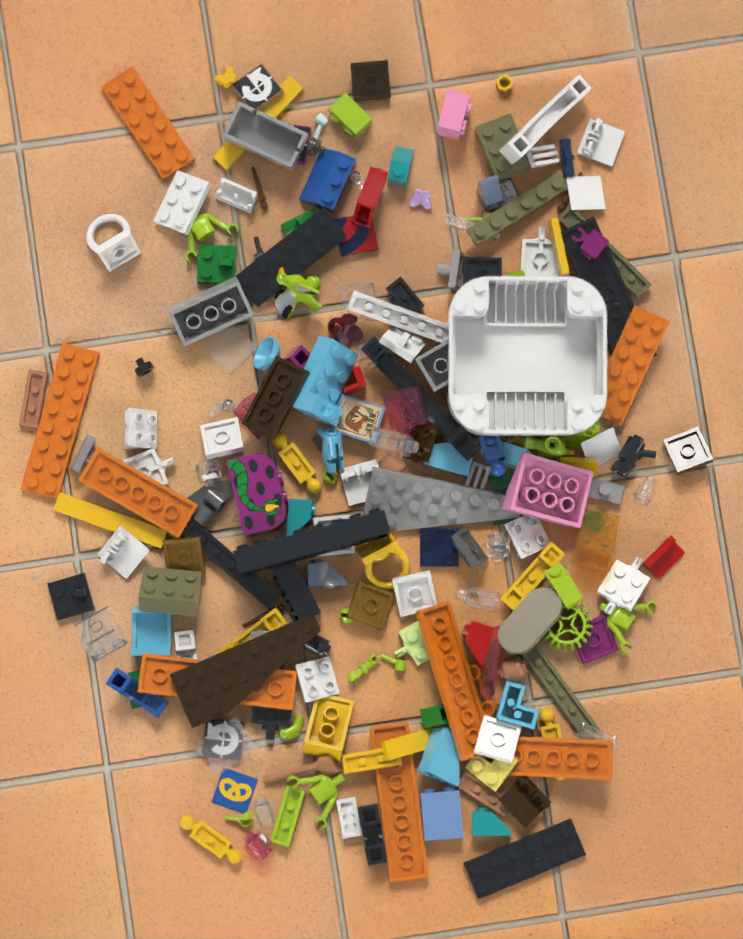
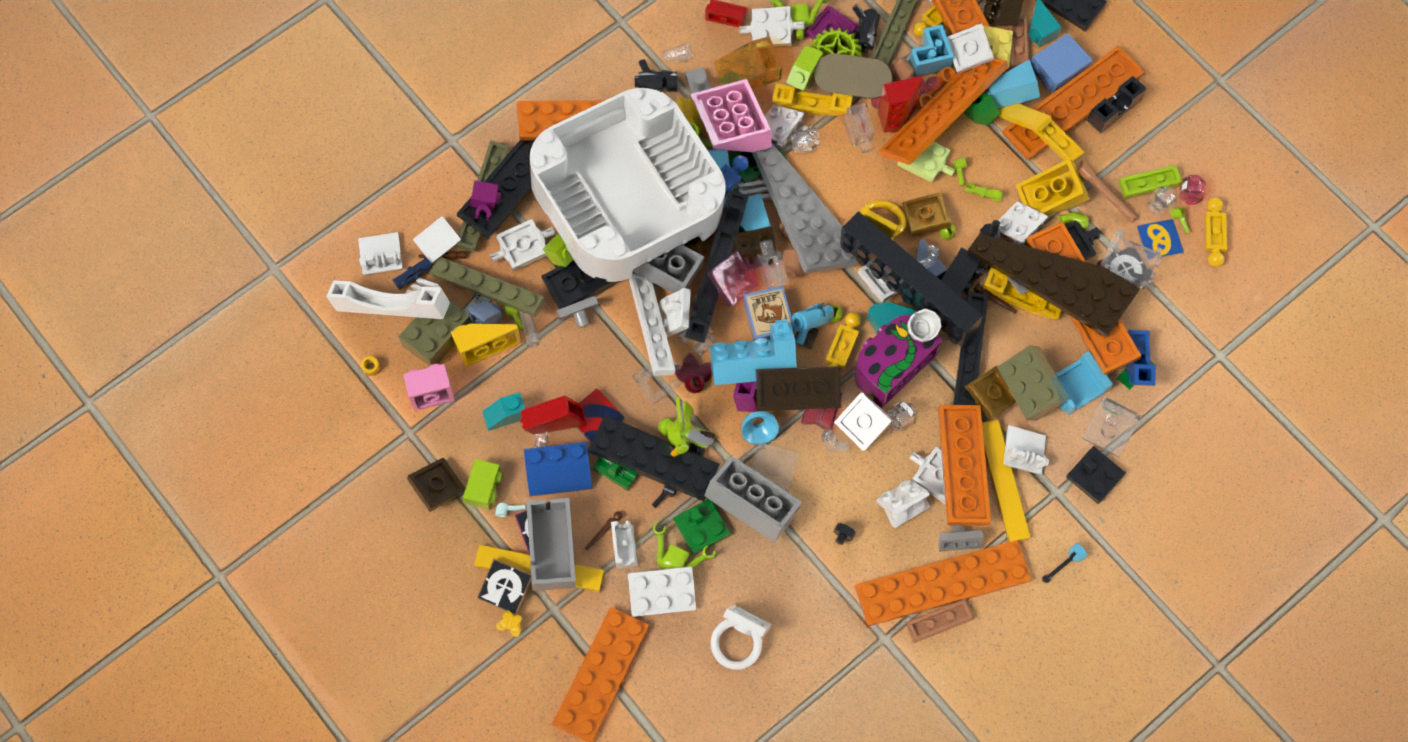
camera: 120 degrees left, 15 degrees down
(18, 536) = (1075, 553): none -> hinge
(185, 644) = (1069, 347): white slope -> none
(211, 500) = (926, 401): dark grey panel -> none
(261, 523) = (924, 325): none -> white hair
(314, 147) = (532, 496): clear smoke tile -> none
(322, 790) = (1108, 166): lime piece -> none
(349, 817) = (1115, 133): white plate -> none
(356, 481) = (822, 285): white hinge -> none
(360, 382) = (736, 329): red panel -> none
(403, 296) = (629, 340): black hinge -> none
(414, 592) = (890, 183): white hinge -> none
(421, 198) = (525, 377): lavender piece -> none
(437, 548) = (836, 189): clear blue tile -> none
(469, 548) = (821, 160): dark grey hinge -> none
(470, 172) = (482, 341): none -> yellow slope
(558, 247) = (503, 229): yellow tile -> none
(574, 668) = (867, 27): none -> black piece
(688, 450) = (622, 37): hinge -> none

